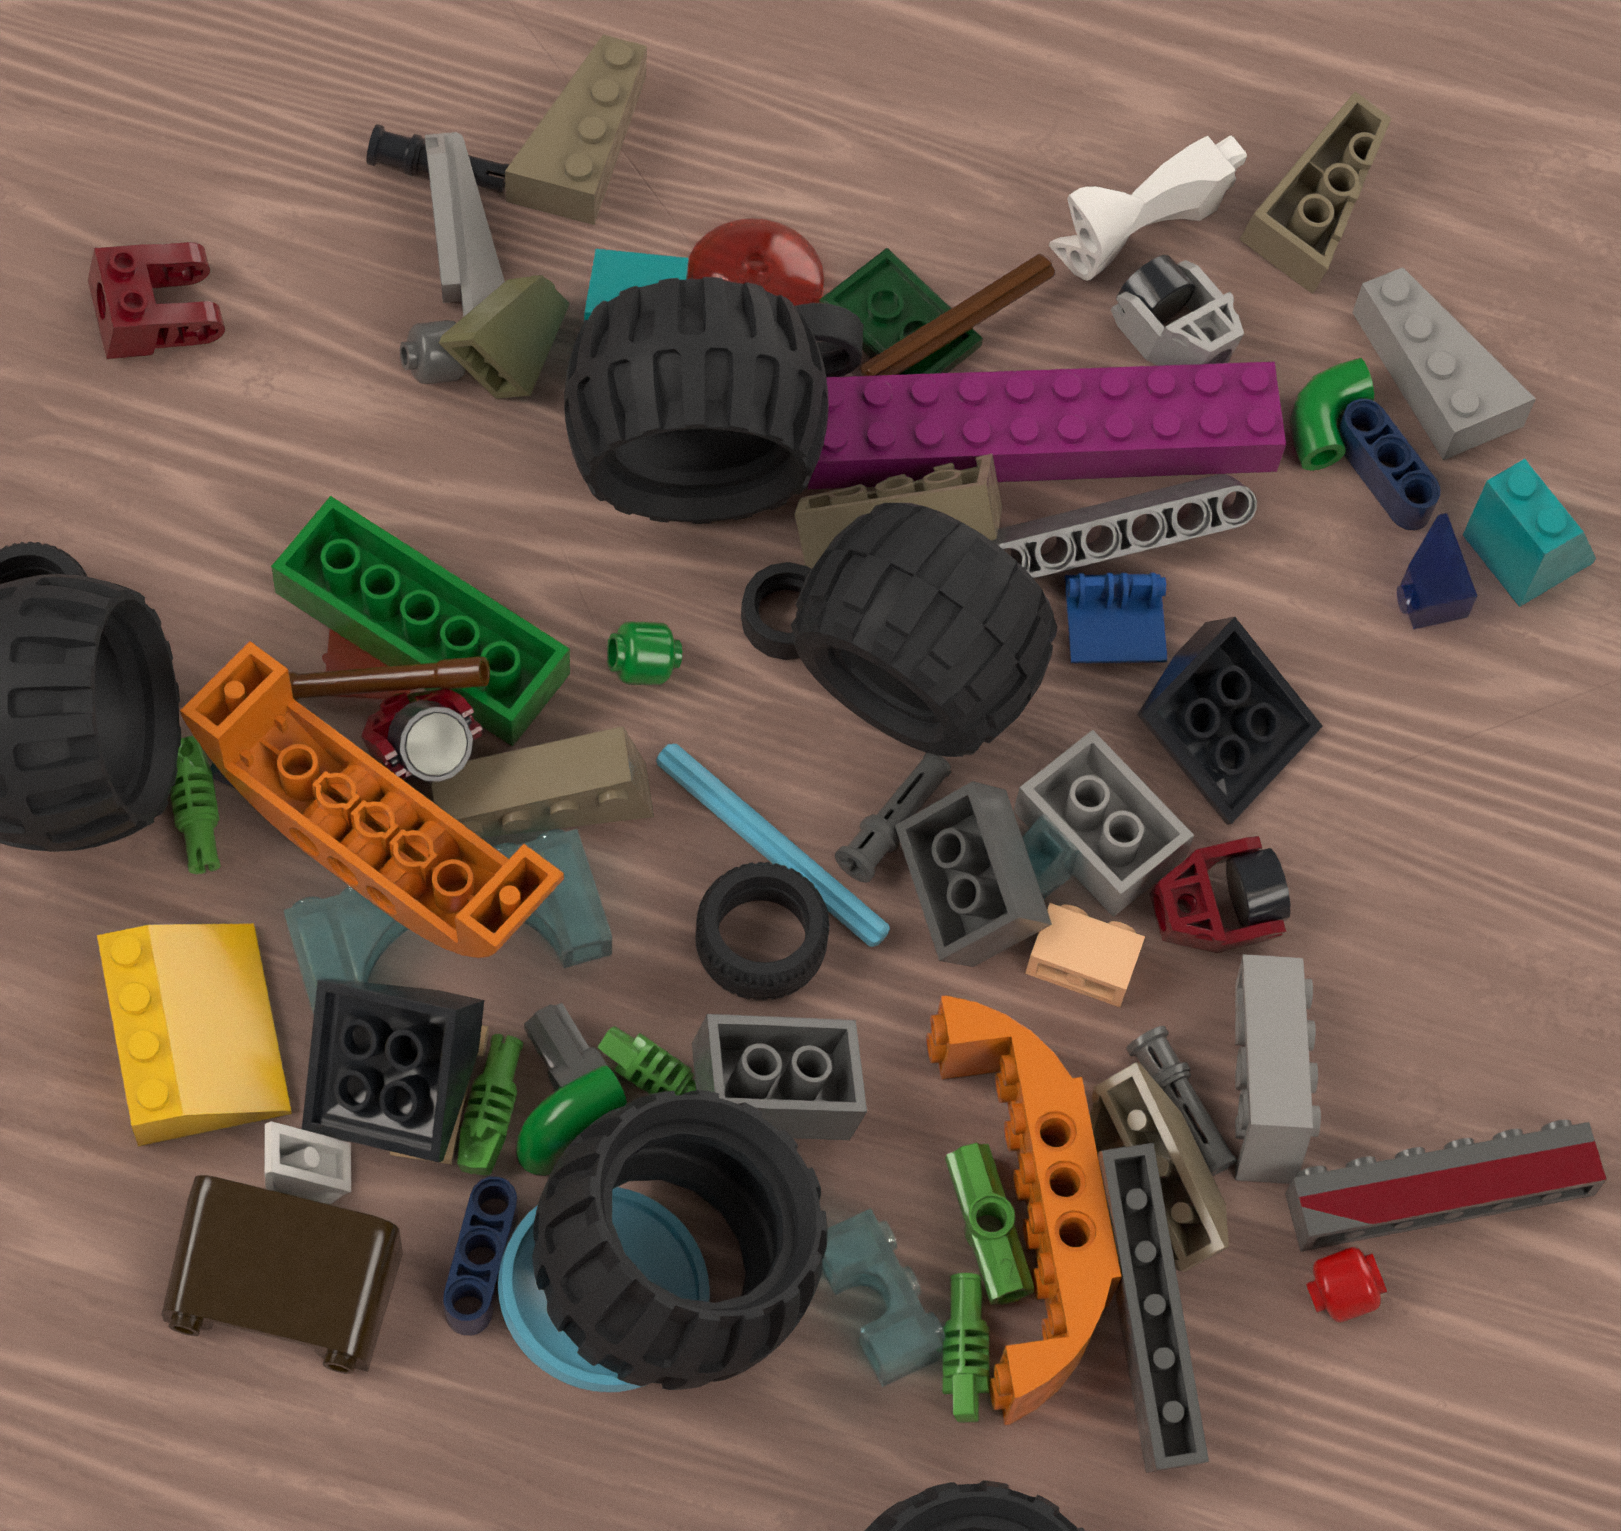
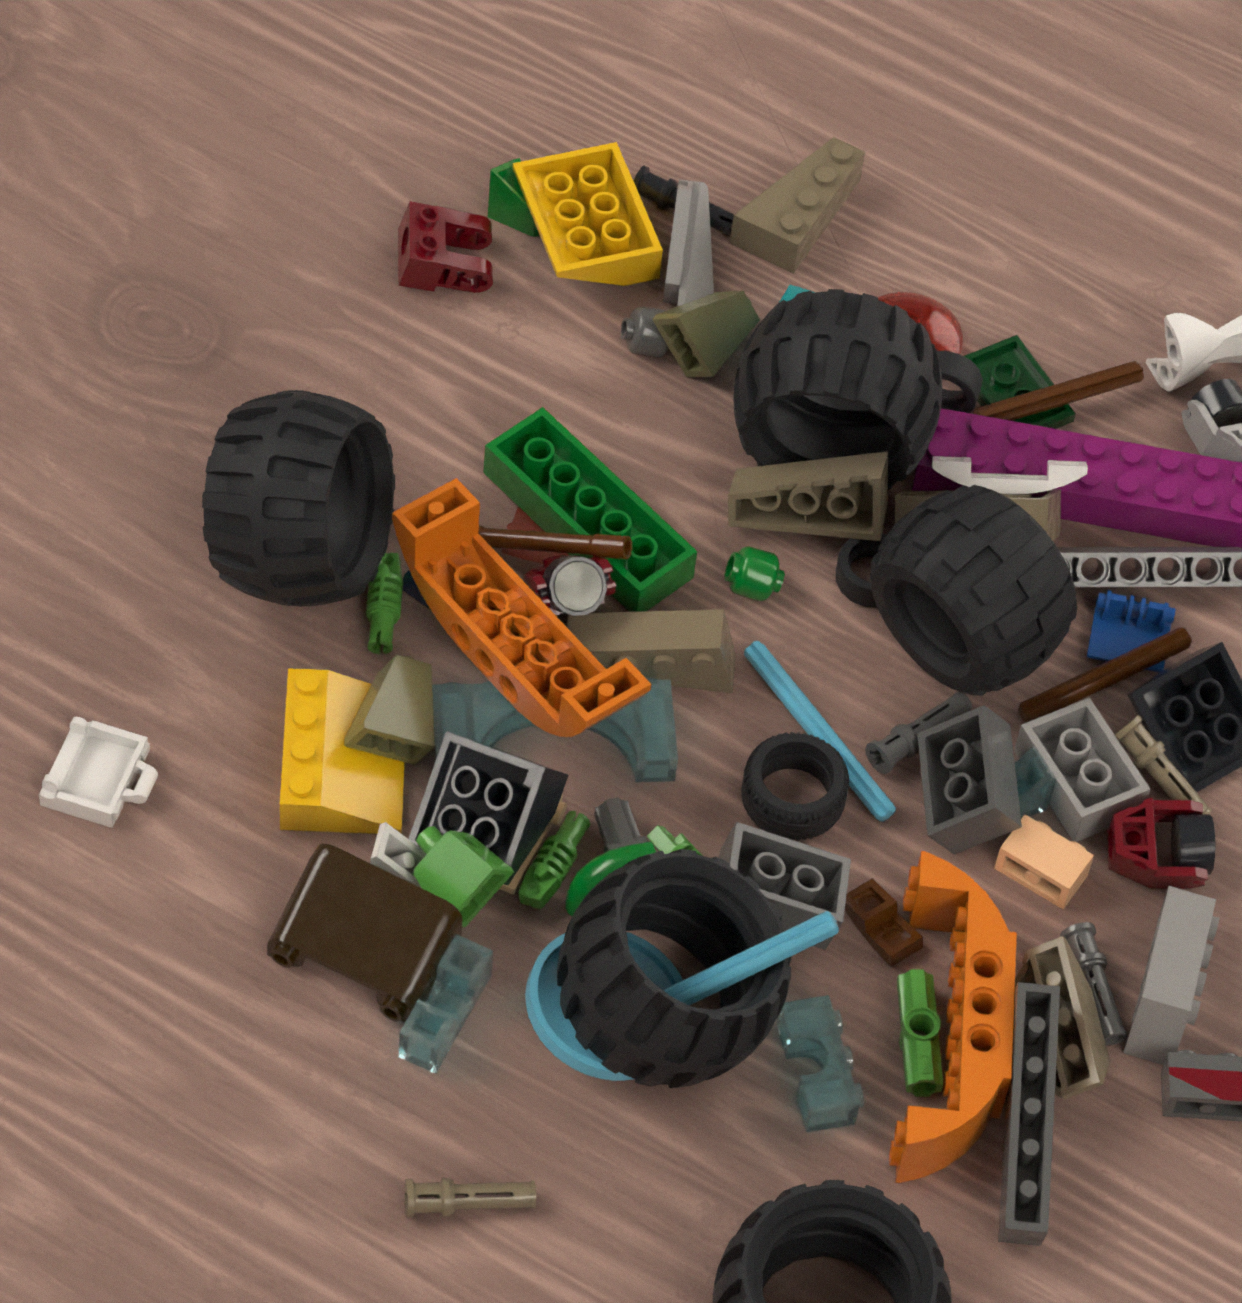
camera: 15 degrees right, 10 degrees down
(223, 208) = (507, 201): none -> green slope
(246, 957) = (396, 713): none -> olive slope
(325, 212) = (591, 216): none -> yellow slope
(377, 1160) = (459, 870): none -> bright green torso
(406, 1341) = (438, 1021): none -> clear light blue arch
(480, 1231) = (513, 977): dark blue beam -> none
(694, 537) = (814, 497): none -> dark tan wedge
(768, 1218) = (755, 959): none -> medium azure axle
(908, 1086) = (880, 924): none -> reddish brown slope
(966, 1348) = (878, 1117): bright green hinge -> none
(988, 442) = (1058, 475): none -> white slope
(1099, 685) = (1105, 674): none -> reddish brown axle
(1181, 786) = (1150, 755): none -> dark tan pin
(1346, 1284) = (1192, 1142): red head -> none

